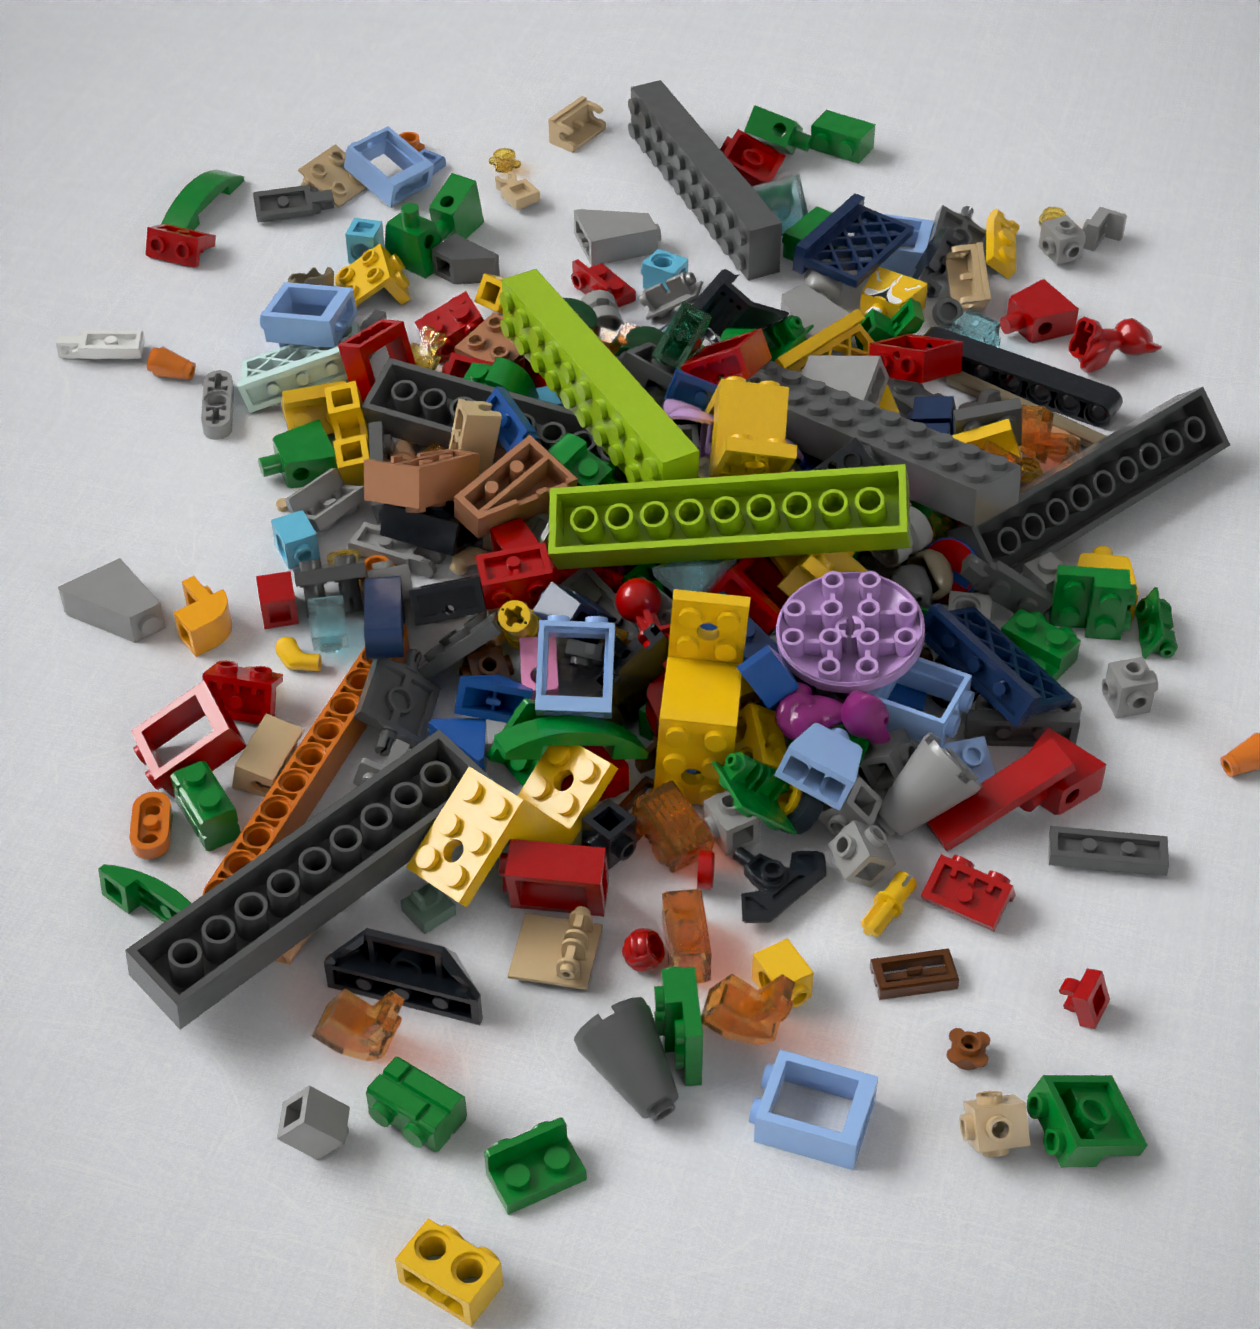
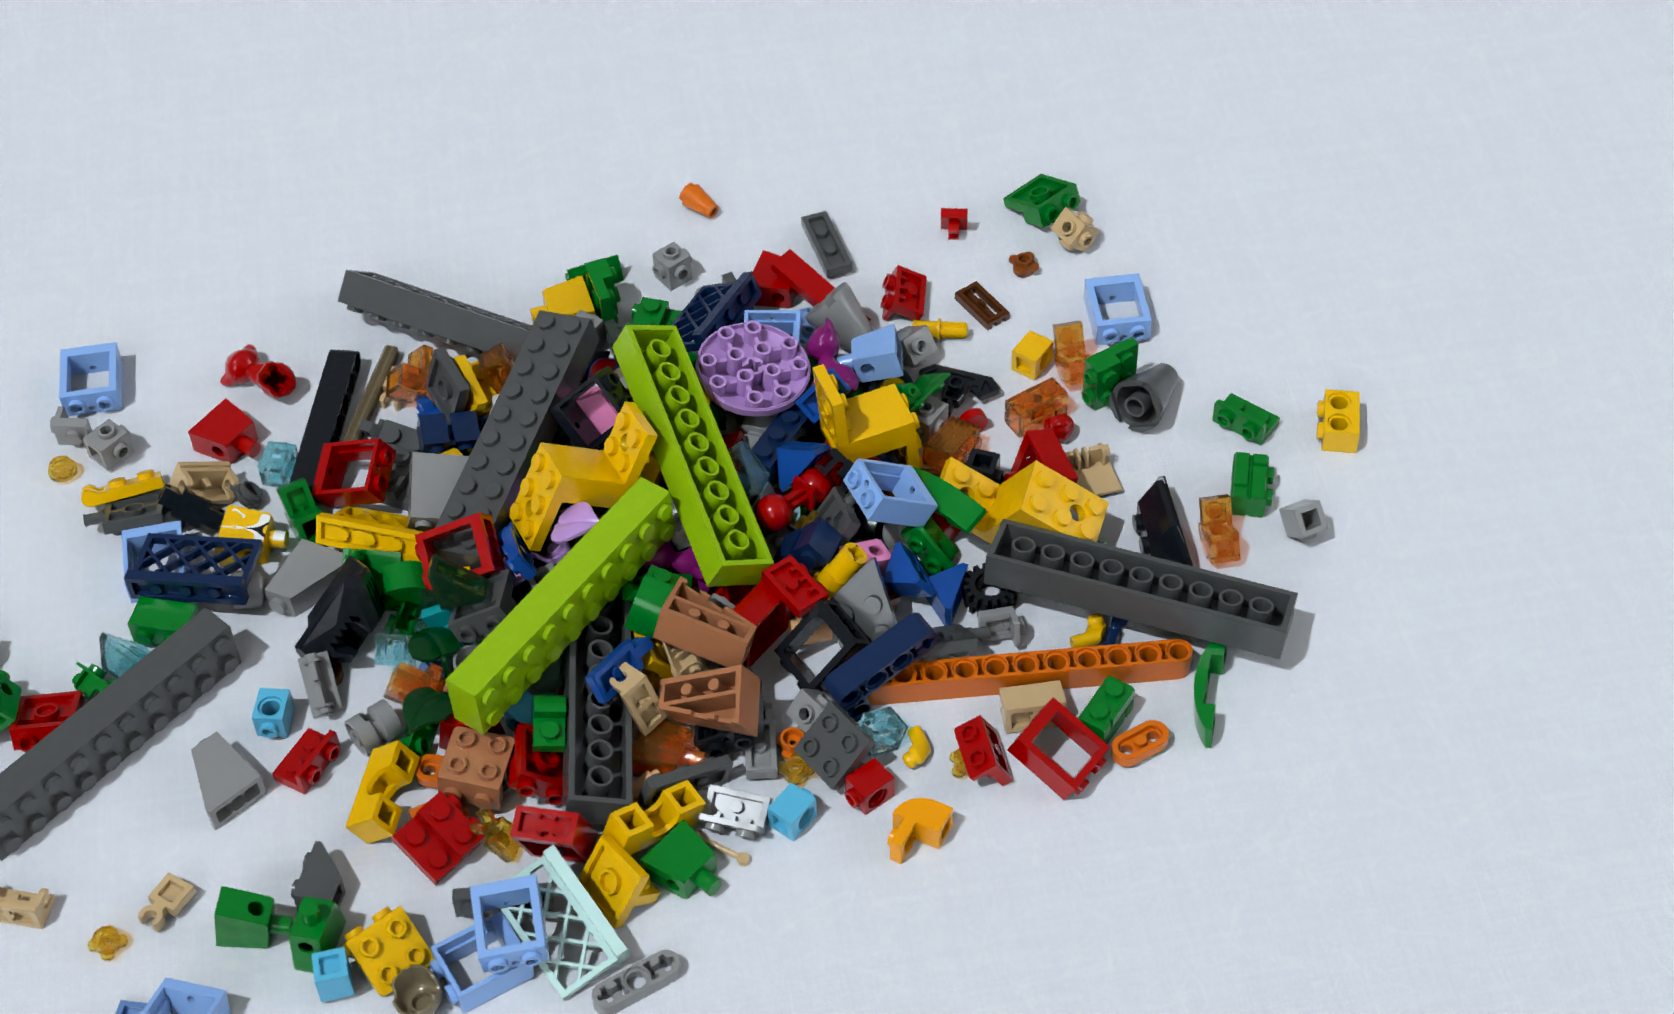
camera: 115 degrees left, 5 degrees up
(114, 602) = (937, 900): light grey slope -> none
(1159, 262) = (91, 360): none -> light blue window

